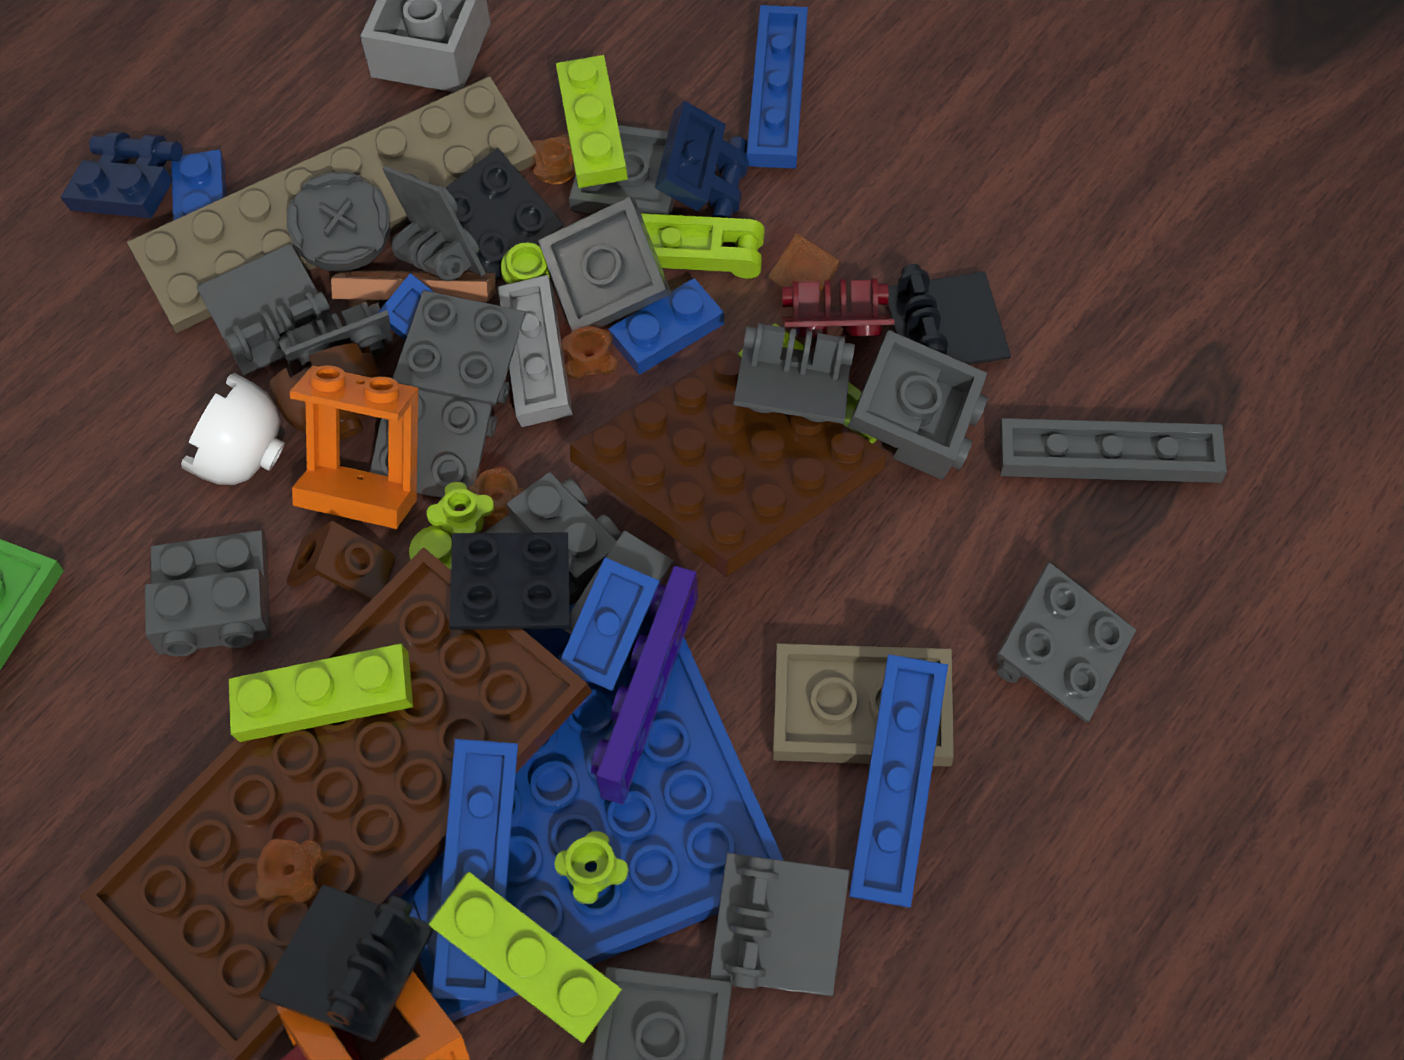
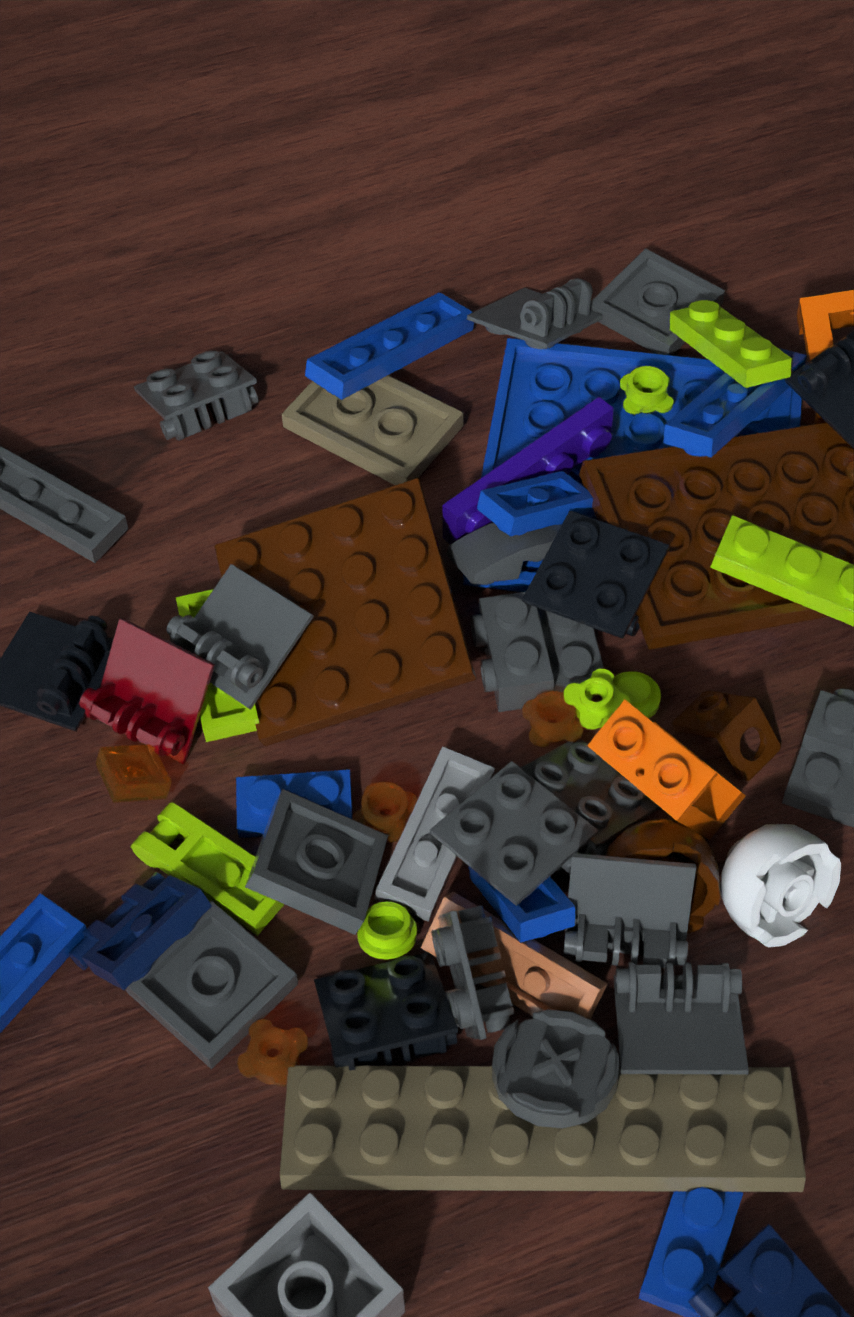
camera: 150 degrees left, 5 degrees down
(591, 121) = (210, 1049): lime plate -> none
(920, 404) = (147, 579): dark grey plate -> none

